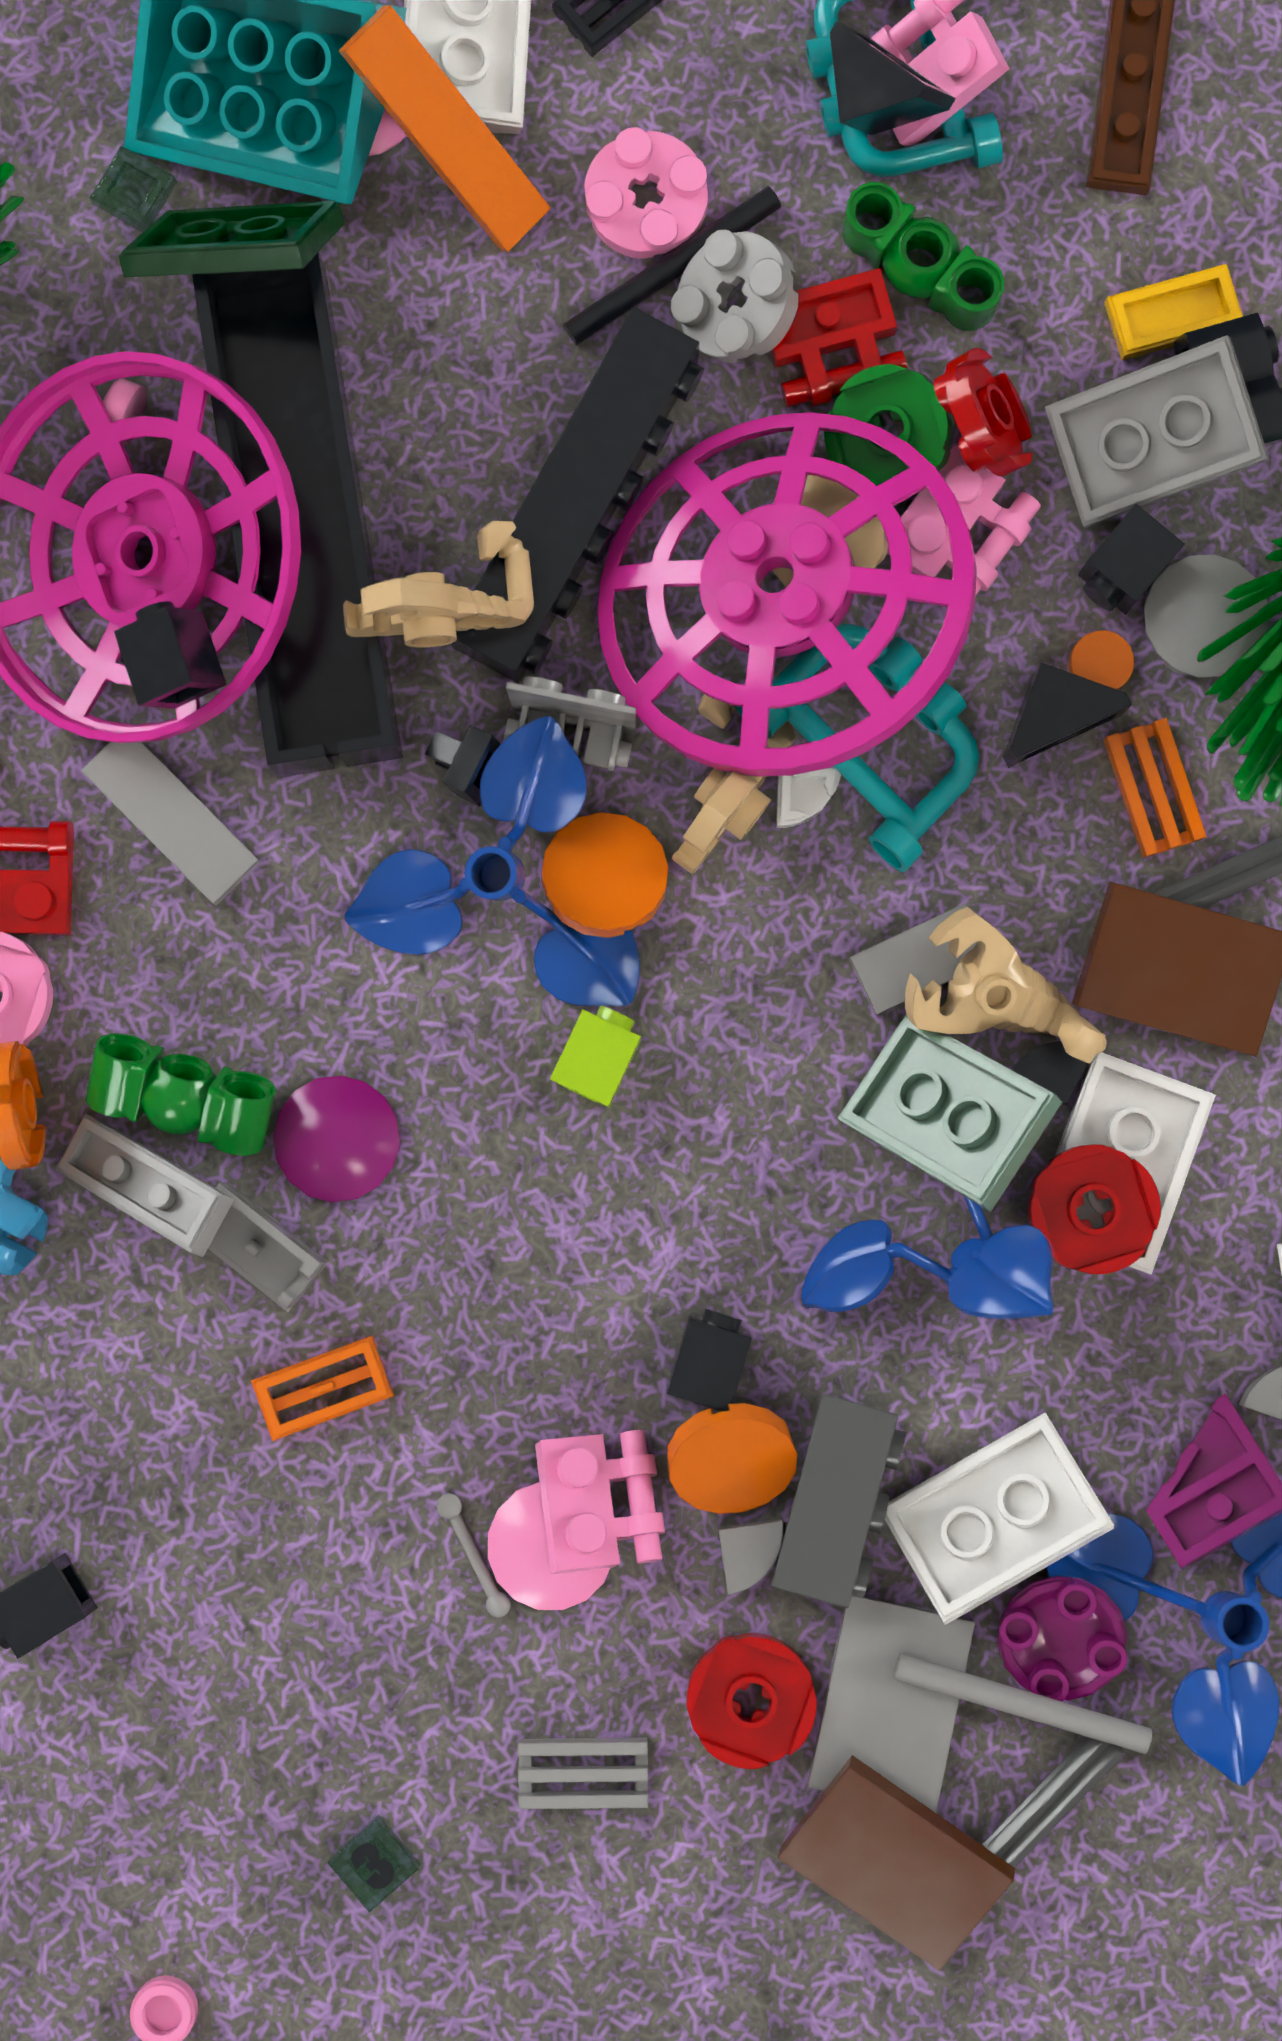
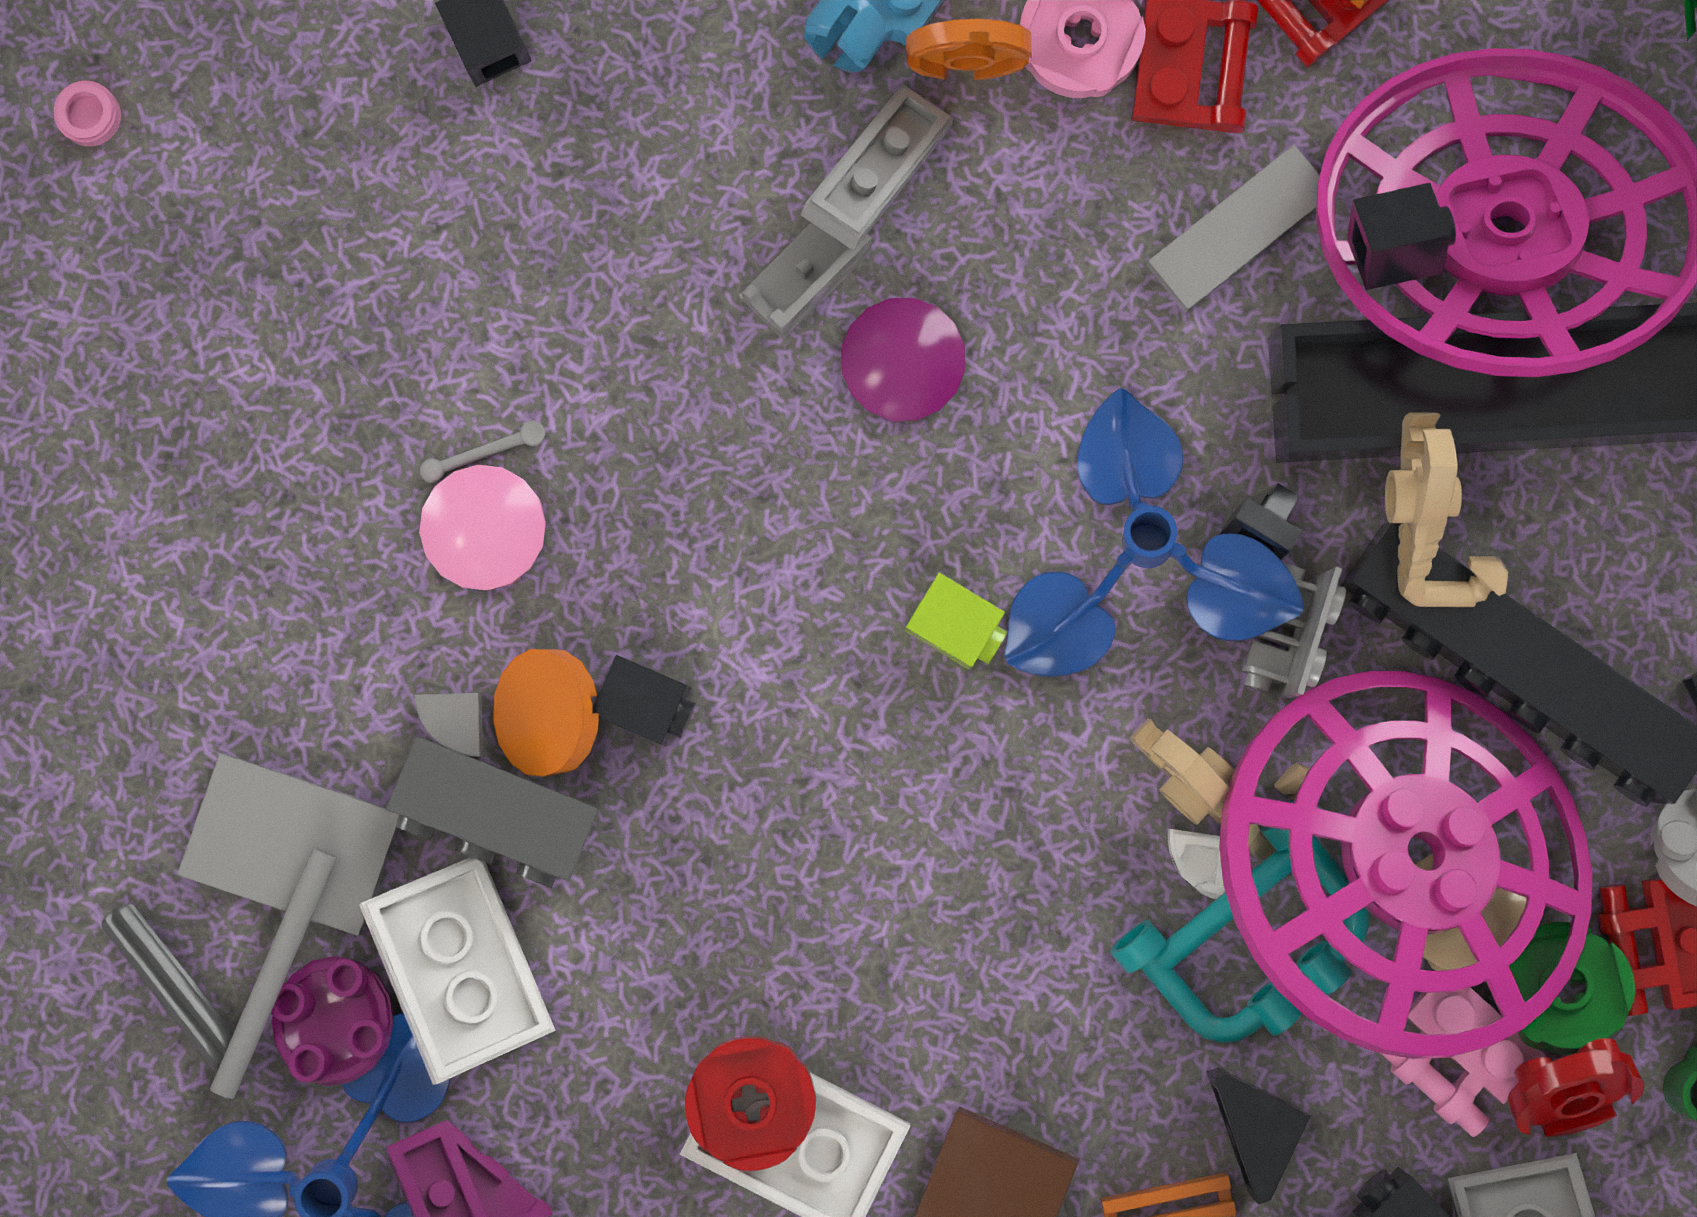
camera: 95 degrees right, 0 degrees up
(125, 400) = (1664, 222): bright pink tile -> none
(180, 1094) = (963, 210): green piece -> none
(373, 1863) = (200, 325): clear green tile -> none
(374, 1369) = (674, 373): orange tile -> none
(580, 1506) = (519, 558): bright pink plate -> none
(583, 1799) = (236, 530): light grey tile -> none
(604, 874) = (1138, 650): orange tile -> none
(767, 1733) = (275, 718): red plate -> none
(887, 965) = (1020, 958): light grey tile -> none
(896, 1863) = (136, 830): reddish brown tile -> none
(950, 1112) = (864, 968): tile -> none
(989, 1276) = (694, 990): blue plant -> none
(996, 991) = (979, 1031): tan animal -> none
(1051, 1069) = (896, 1080): black tile -> none
(1102, 658) = (1308, 1181): orange tile -> none

